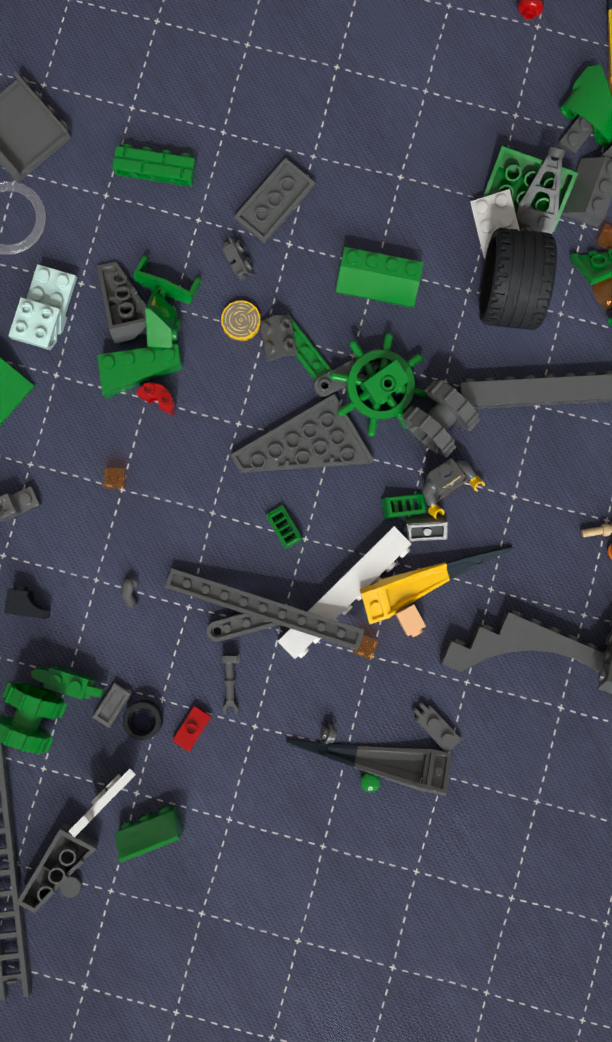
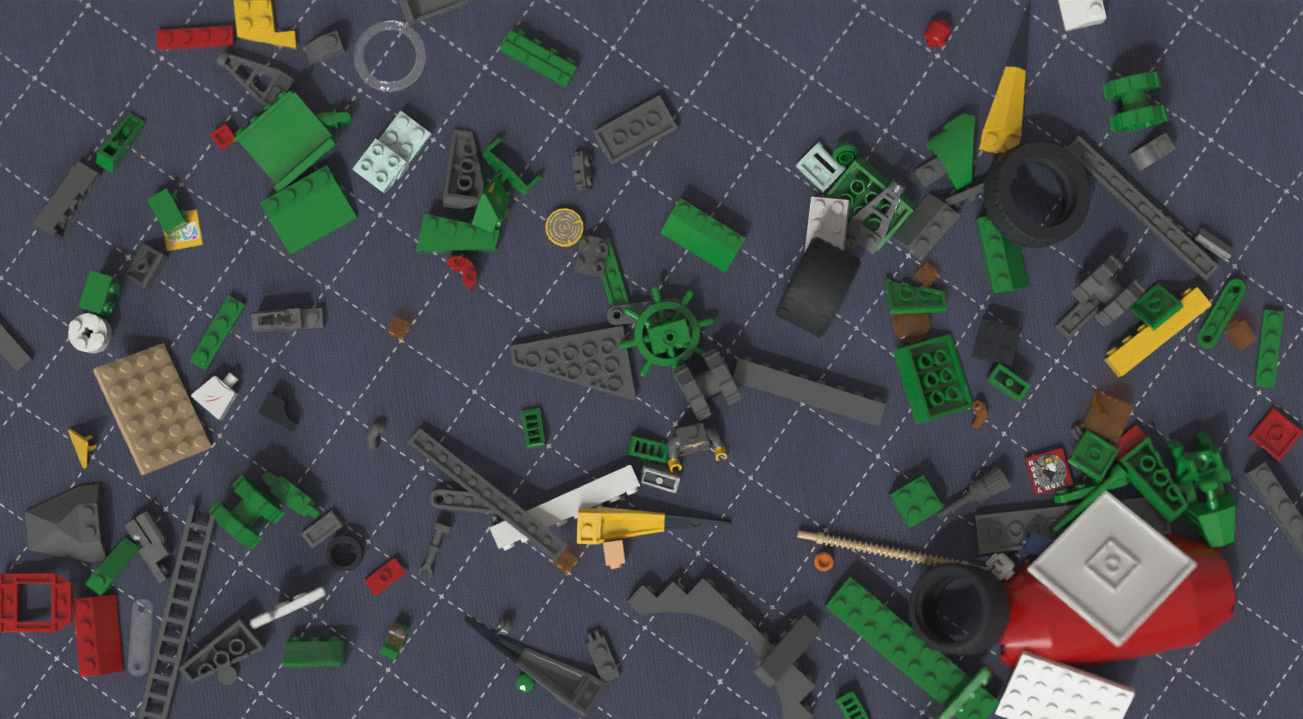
camera: 20 degrees right, 0 degrees up
(225, 789) = (395, 640): none -> leg
(465, 176) = (816, 172): none -> light aqua plate
(487, 147) = (845, 153): none -> green cone

